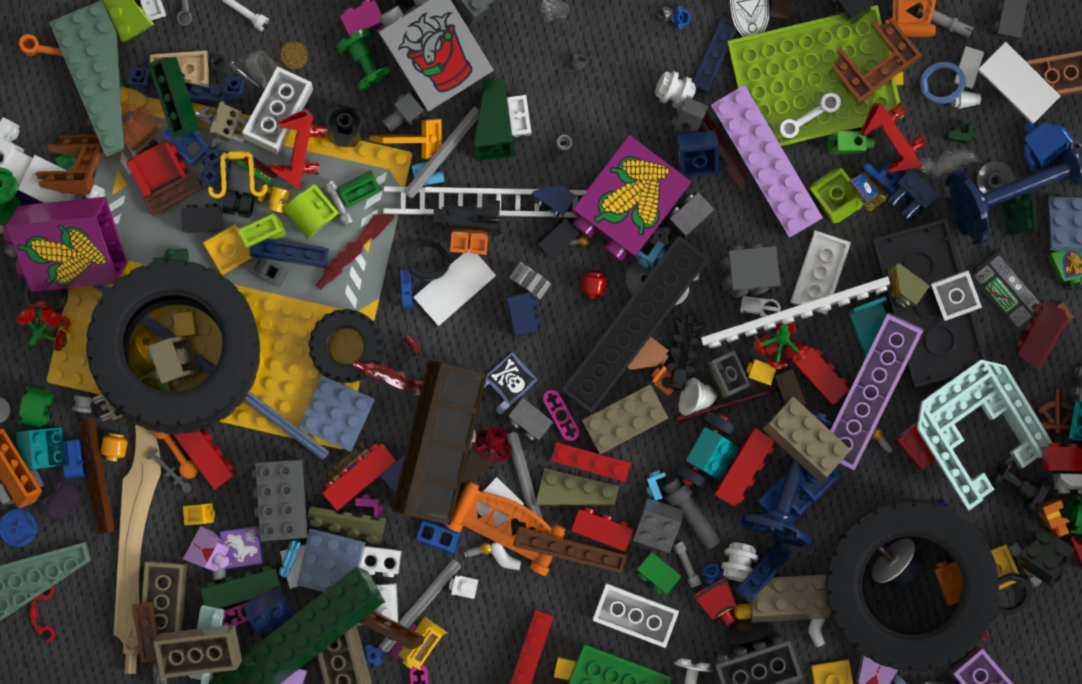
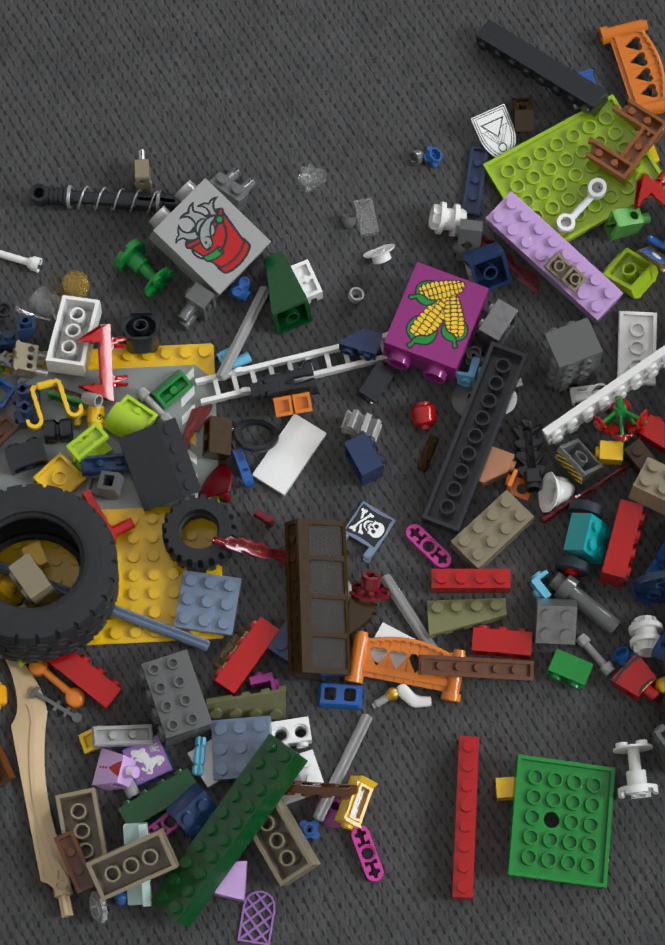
camera: 15 degrees left, 15 degrees down
(222, 520) = (122, 735): none -> light grey tile
(262, 320) = (117, 529): none -> red piece
(278, 183) = (92, 399): none -> light grey hinge
(325, 266) = (159, 464): none -> black slope
(362, 17) = (134, 228): dark pink piece -> none
(376, 298) = (218, 483): none -> dark red shield
(389, 253) = (217, 438): none -> dark brown brick
(430, 138) = (226, 324): light orange piece -> none
(452, 108) = (240, 290): none -> blue plate
(463, 586) = (380, 737): white bracket -> none
(530, 419) = (400, 555): flat silver brick -> none
(581, 240) = (400, 379): pearl gold piece -> none
(587, 322) = (427, 453): none -> dark brown axle
(597, 63) = (366, 217): none -> clear plate
(599, 106) = (380, 254): none -> white piece
(635, 615) = (559, 715): white brick -> none
(771, 183) = (565, 272): none -> dark tan slope

